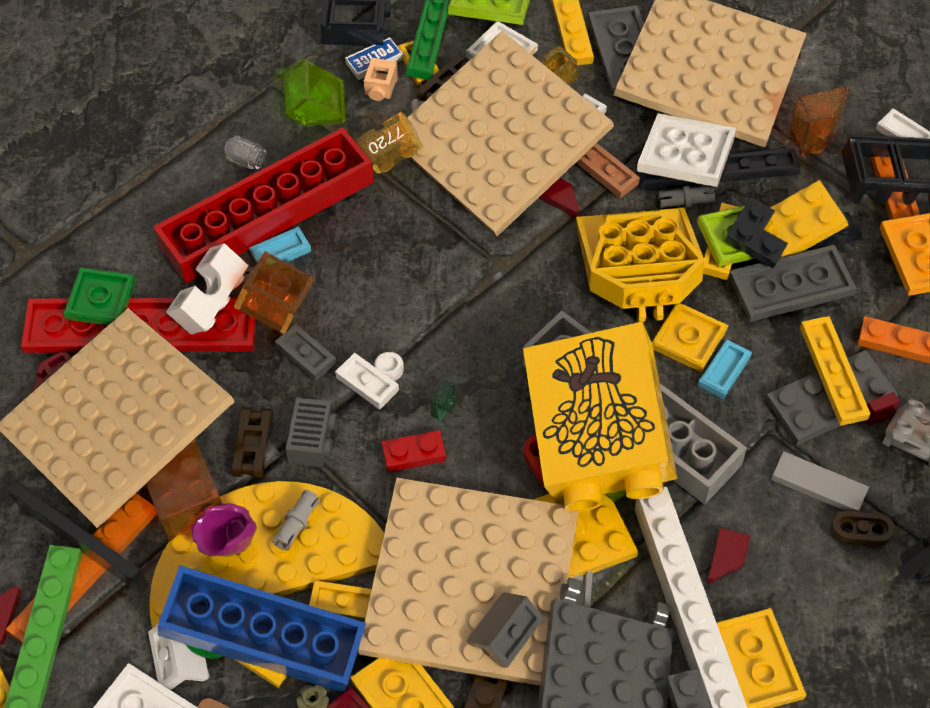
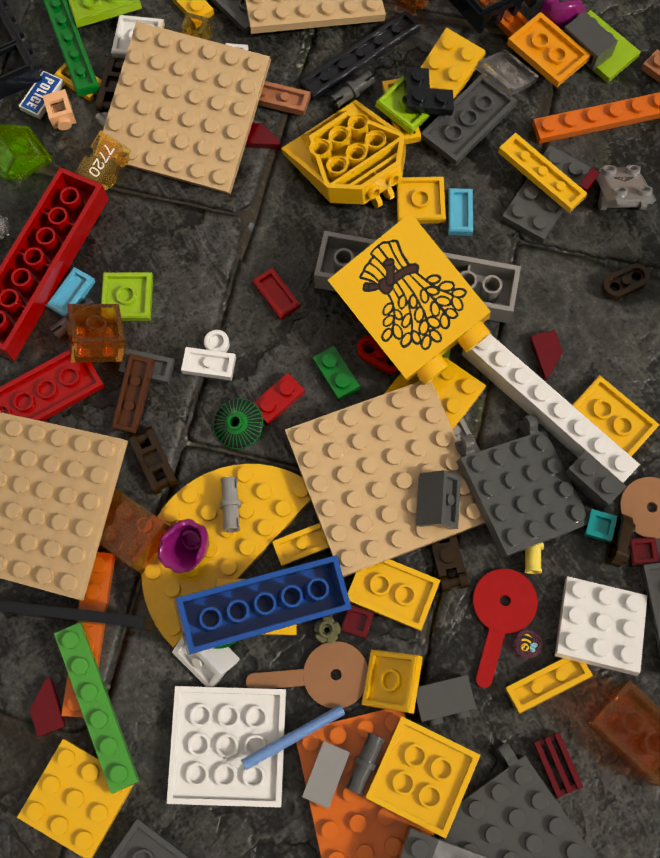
camera: 30 degrees left, 15 degrees up
(222, 273) = (44, 340): white arch -> none
(275, 369) = (133, 393): none -> reddish brown tile
(310, 432) = (192, 428): dark grey brick -> none
(335, 279) = (131, 292): none -> lime tile
(365, 460) = (249, 425): none -> dish
(444, 400) = (277, 347): clear green plate -> none
(479, 351) = (276, 293): none -> red tile
(489, 458) = (336, 373): none -> green plate
(686, 149) = (332, 51): white plate -> none
(819, 483) = (576, 263): light grey tile -> none
(862, 256) = (507, 72): none -> clear plate

